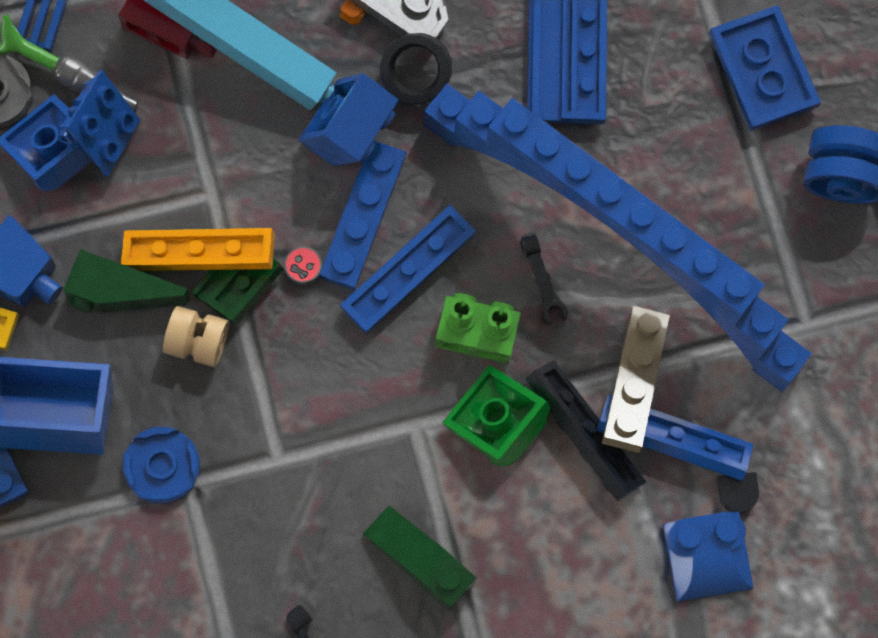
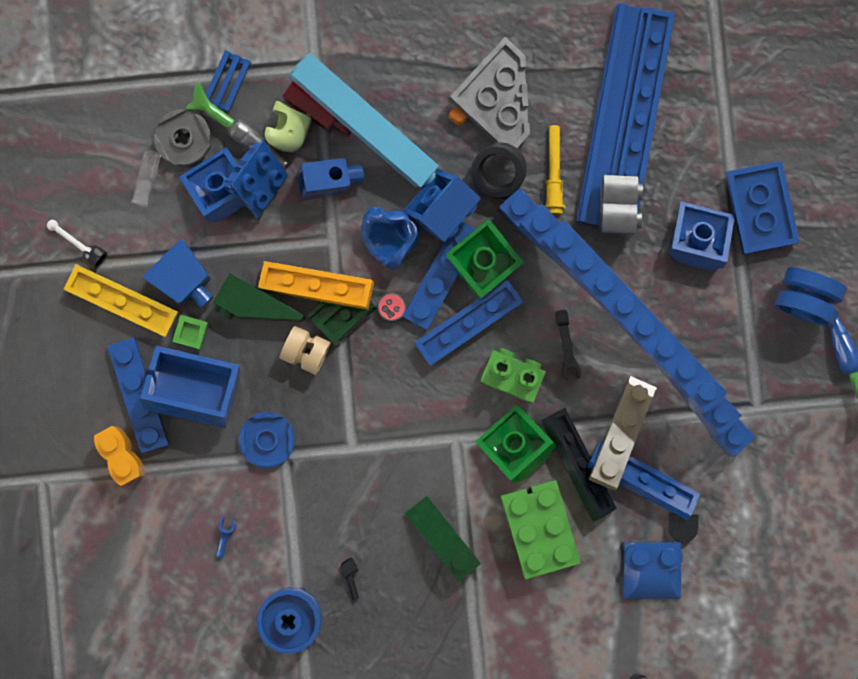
camera: 15 degrees right, 10 degrees up
(38, 338) = (190, 332): none -> bright green plate
(122, 603) = (224, 537): none -> blue hand
(135, 58) = (290, 129): none -> yellowish green helmet
(191, 111) = (315, 178): none -> blue torso
(285, 171) = (389, 235): none -> blue hair
(414, 181) = (484, 258): none -> green slope
(491, 78) = (554, 185): none -> yellow pin
(548, 522) = (540, 529): none -> bright green piece
(580, 86) = (619, 205): none -> flat silver brick
(693, 115) = (701, 237): none -> blue slope

